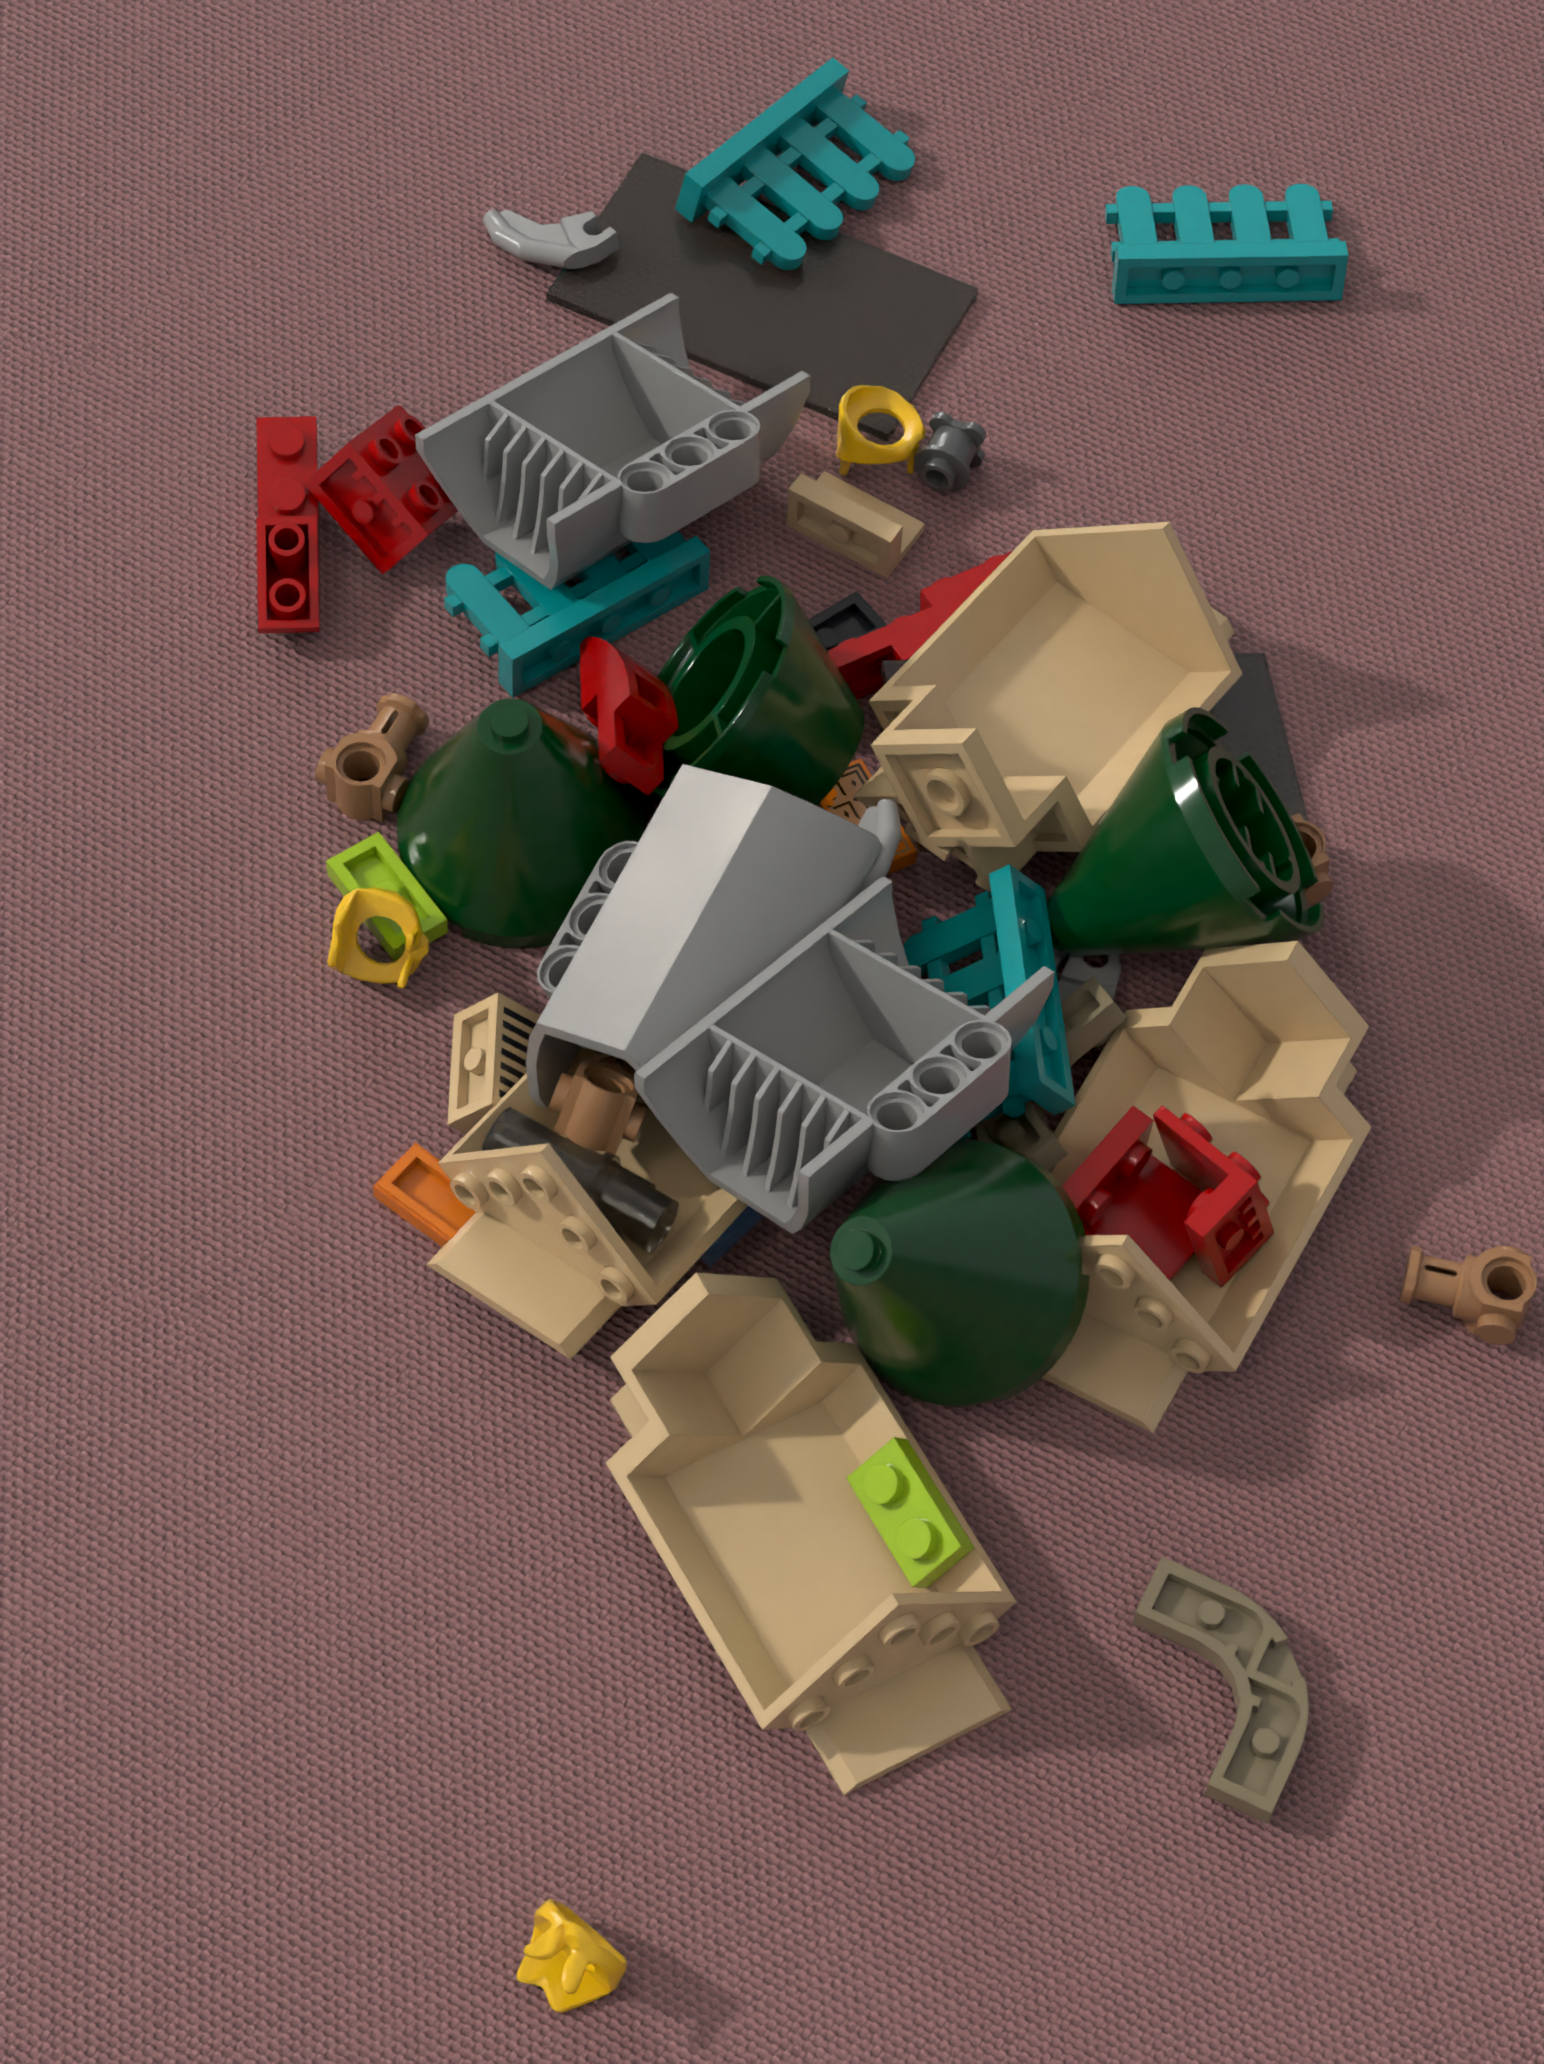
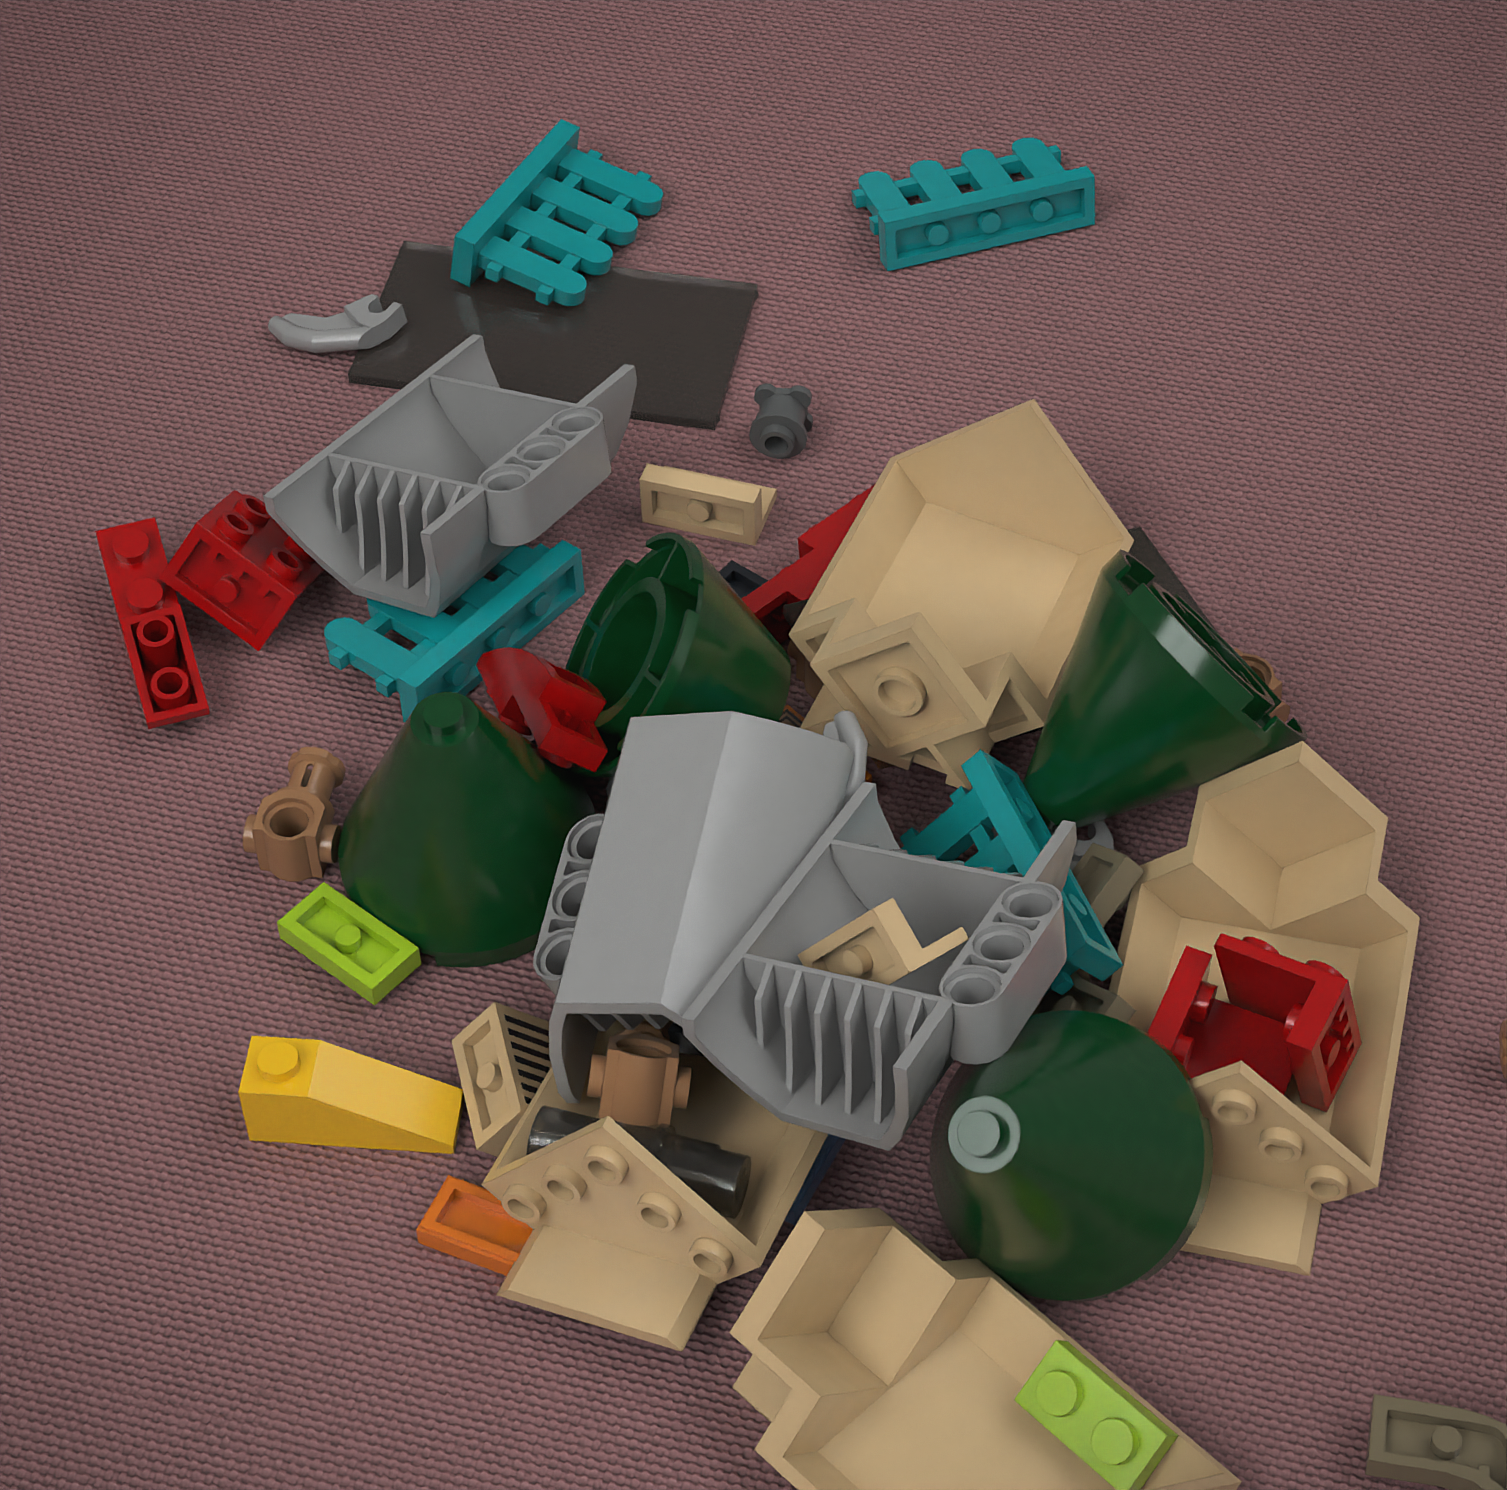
camera: 10 degrees left, 10 degrees down
(342, 1048) = (343, 1099): none -> yellow slope
(345, 952) = (321, 957): yellow piece -> none
(829, 1052) = (877, 947): none -> tan panel
(855, 448) = (687, 430): yellow piece -> none

